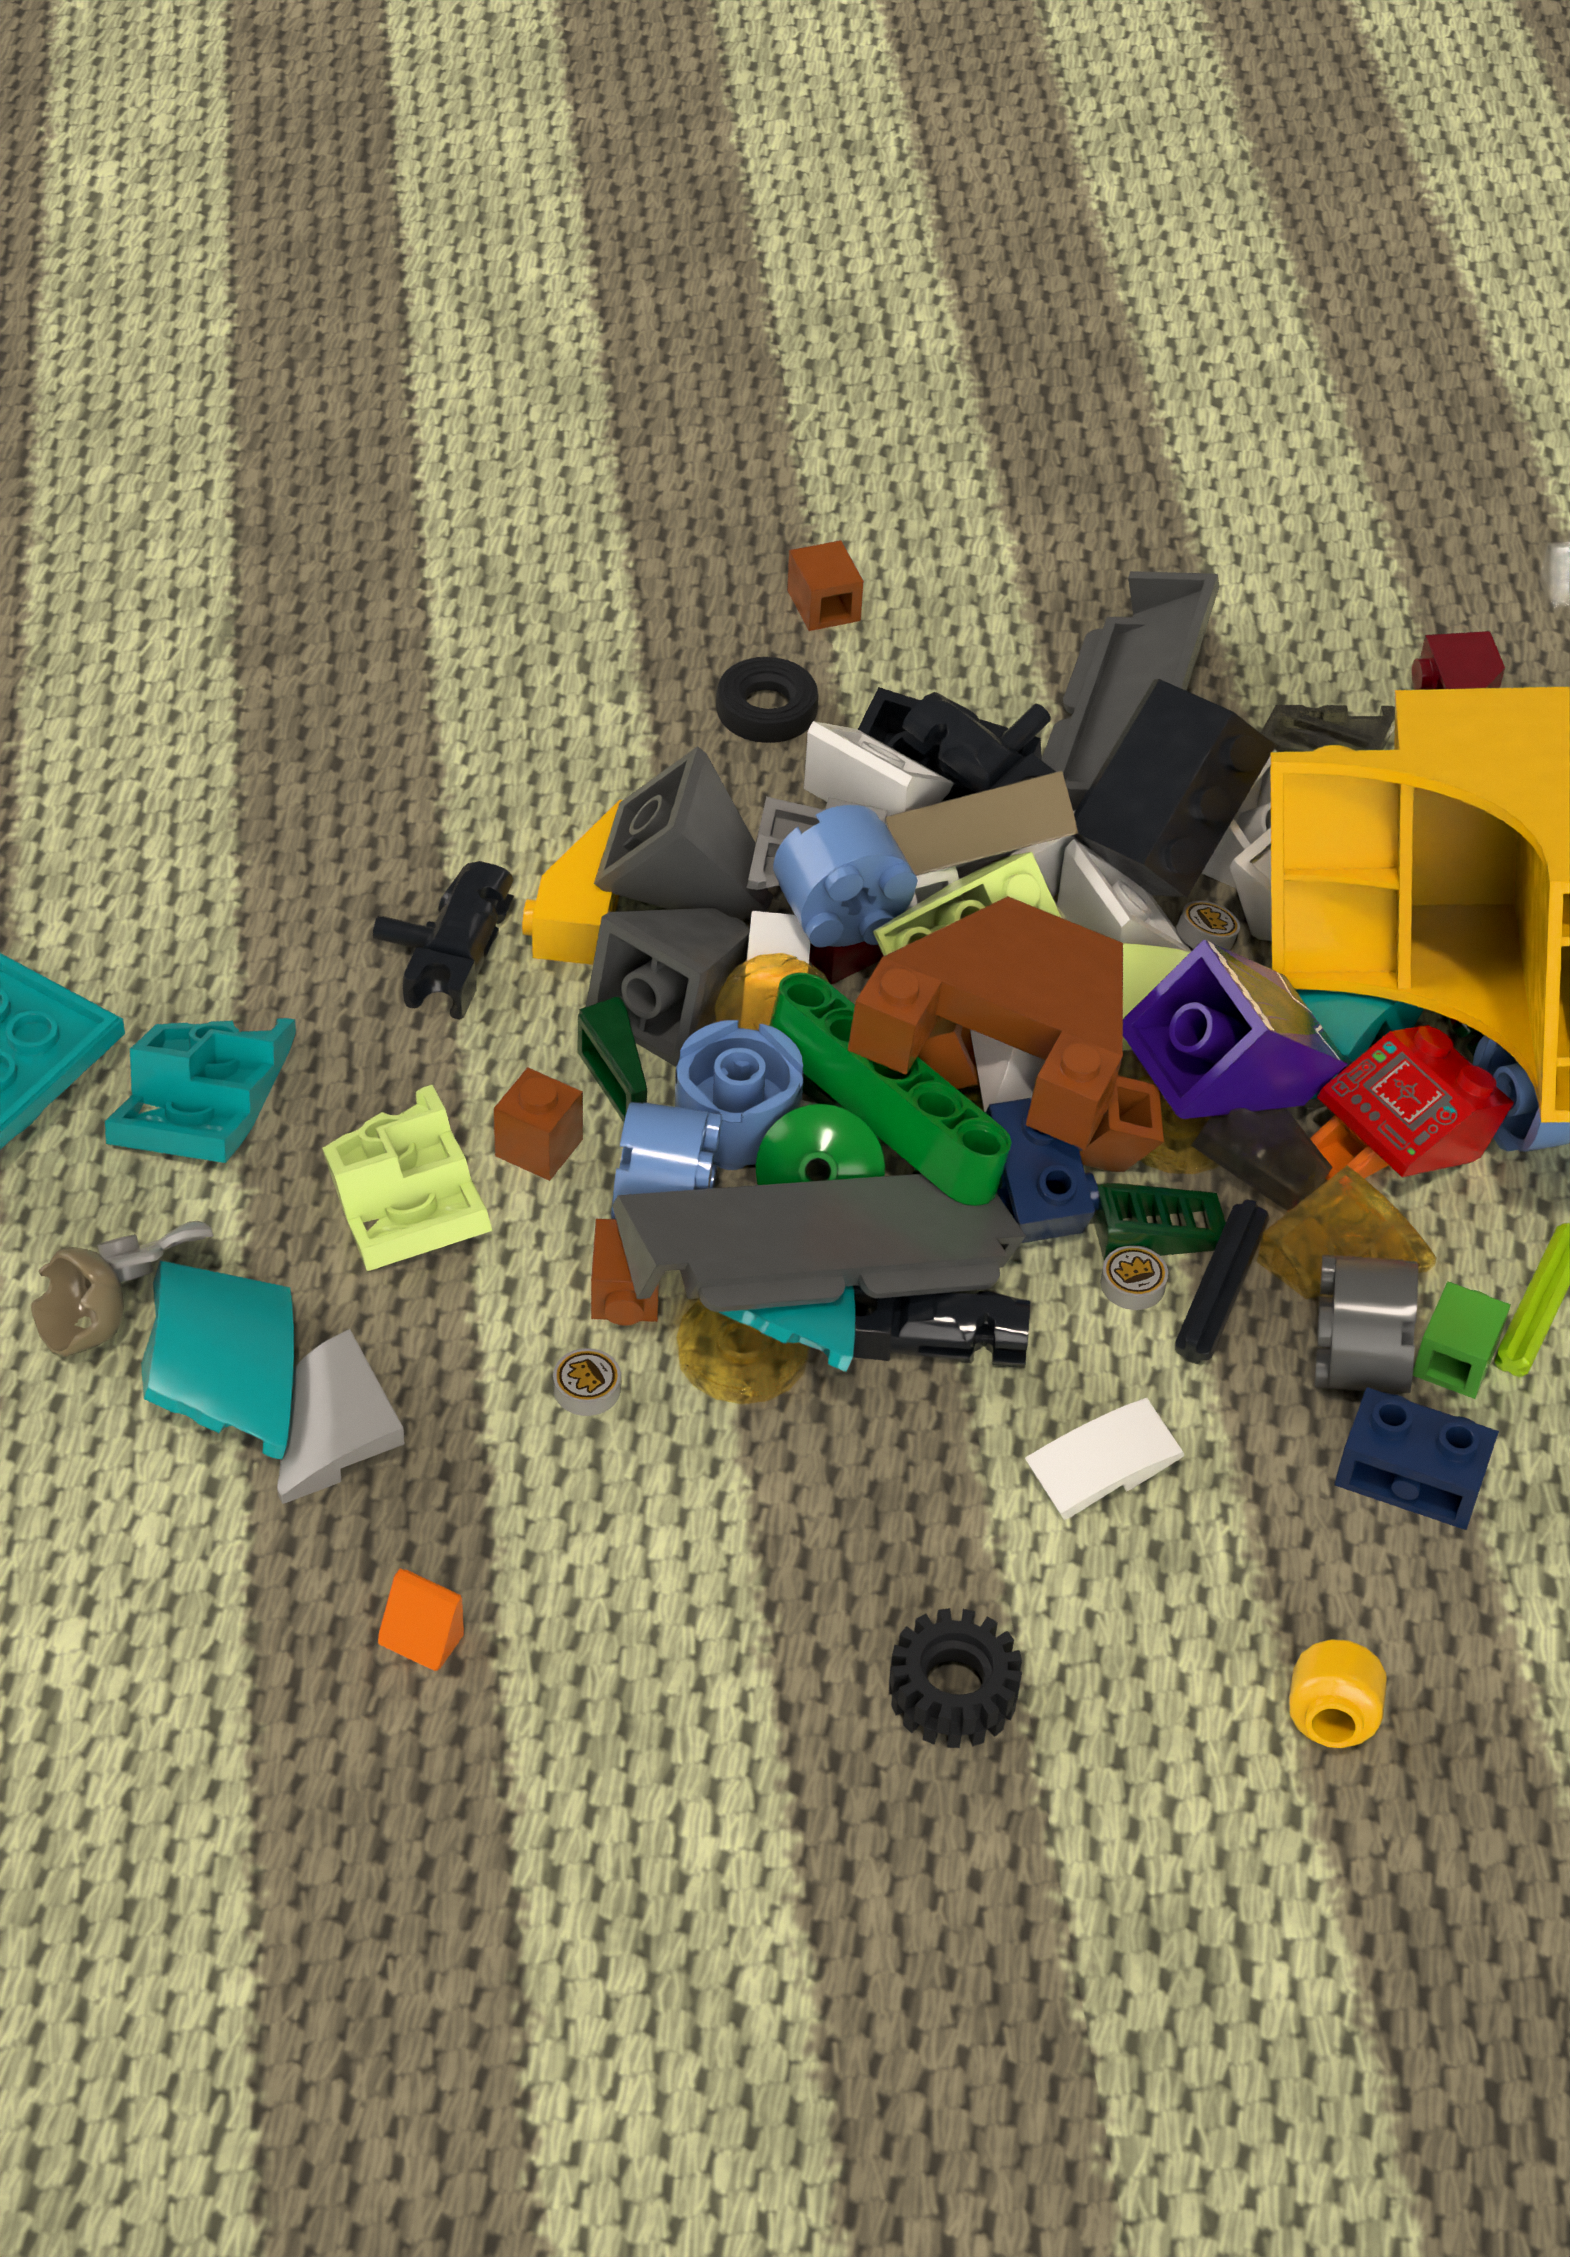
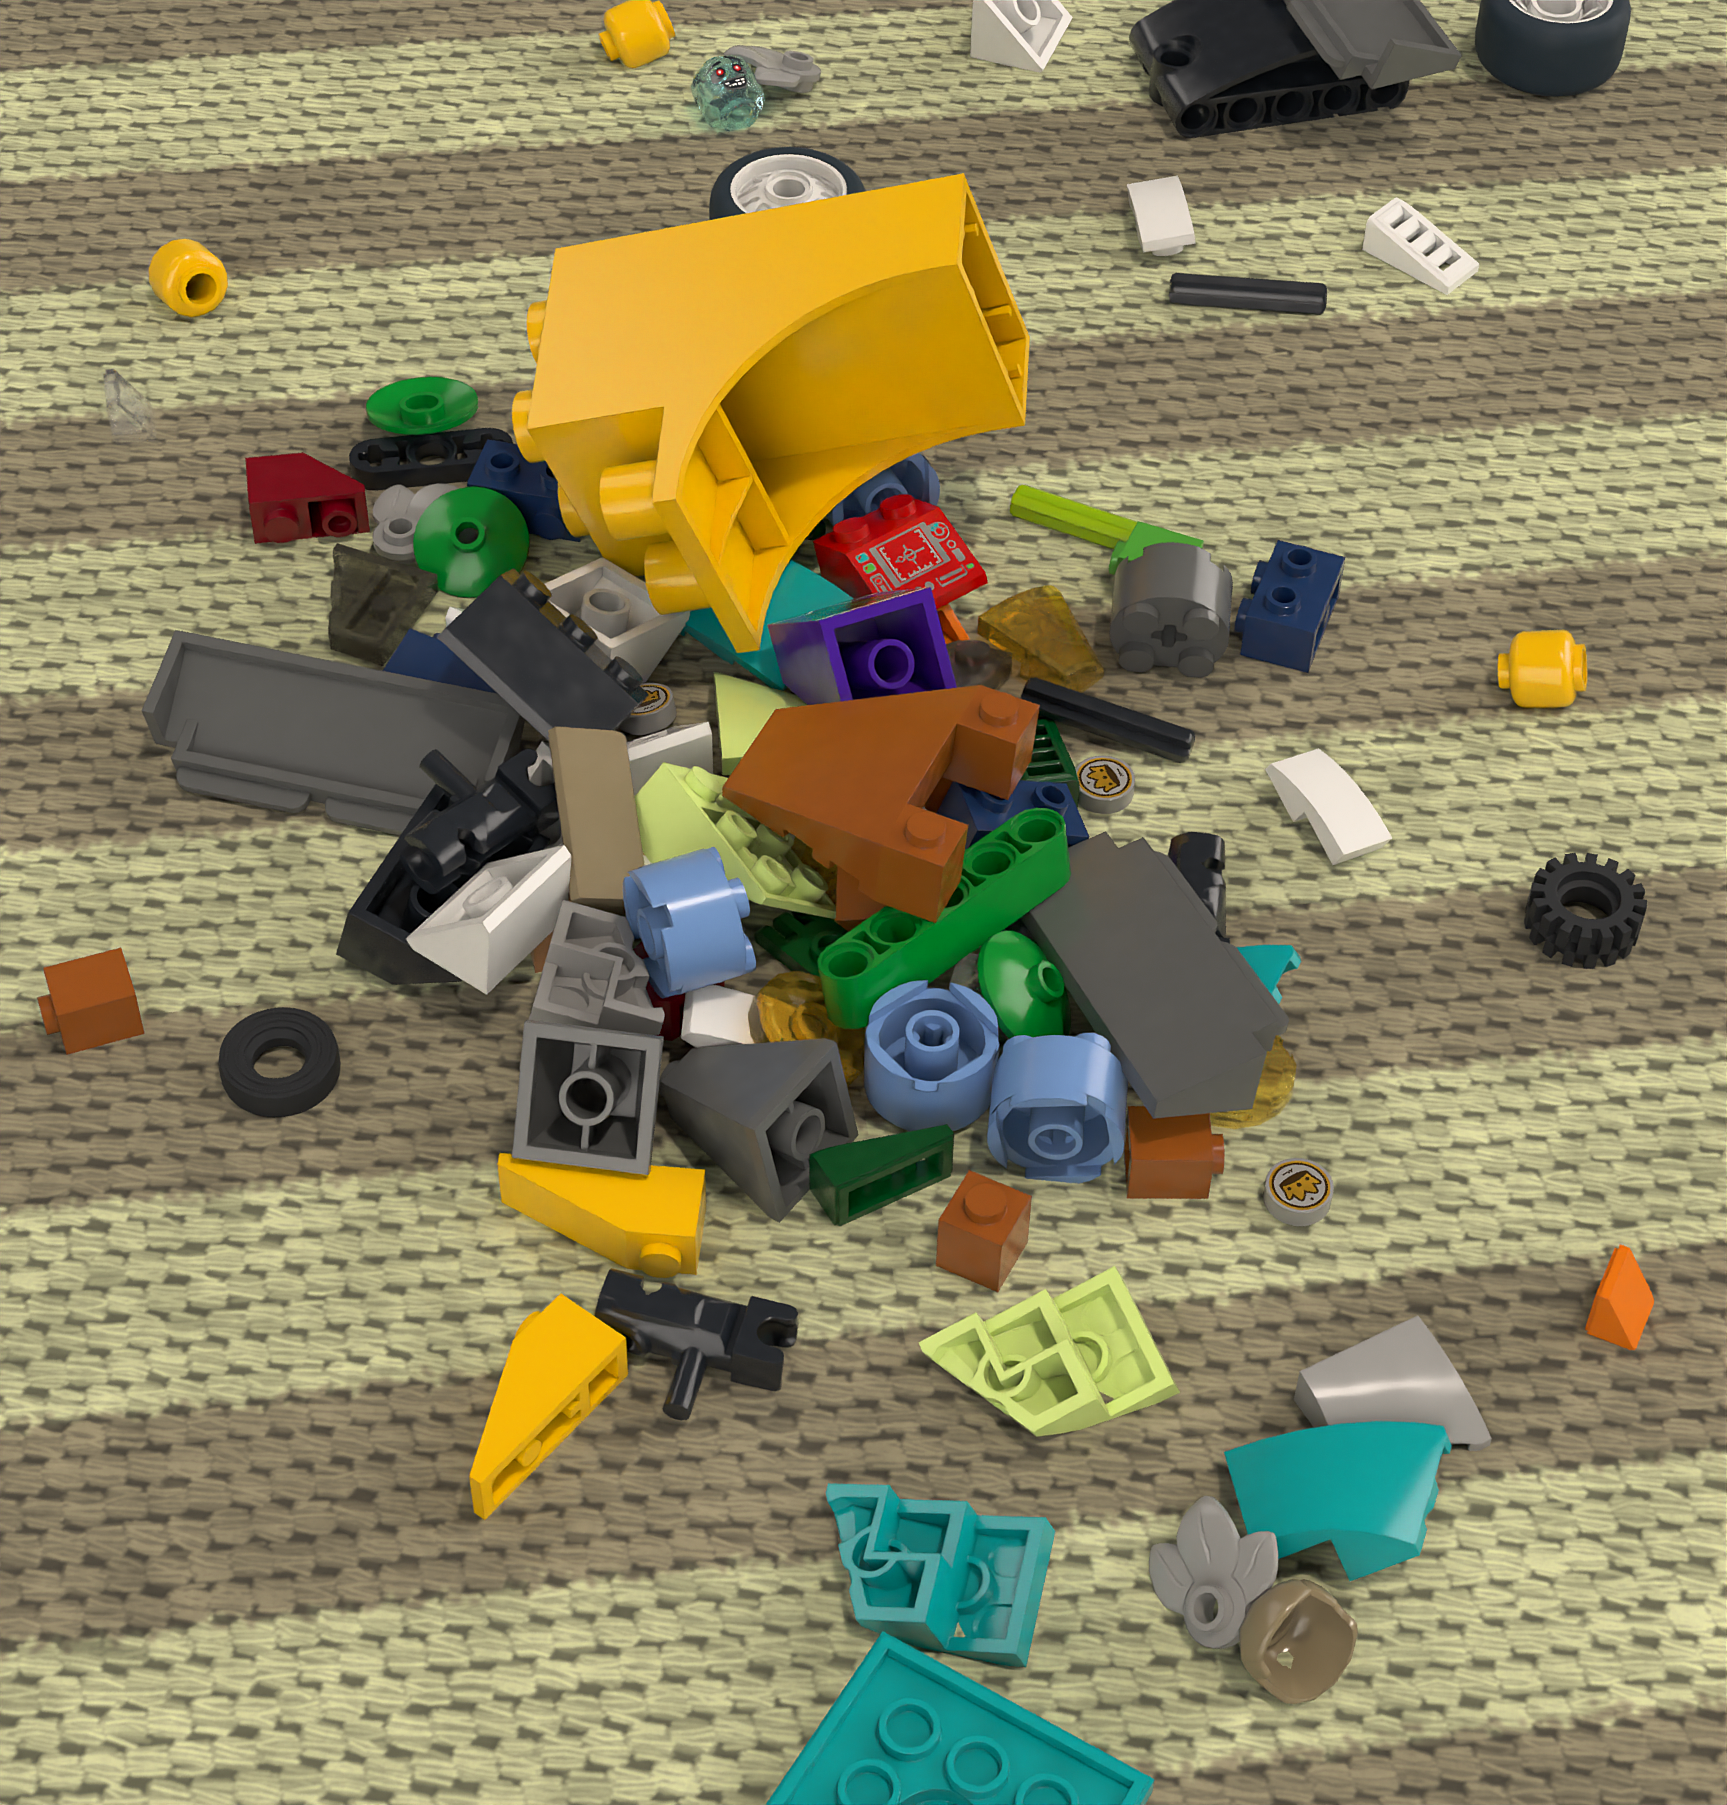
camera: 90 degrees left, 0 degrees up
(395, 841) = (550, 1383): none -> yellow slope

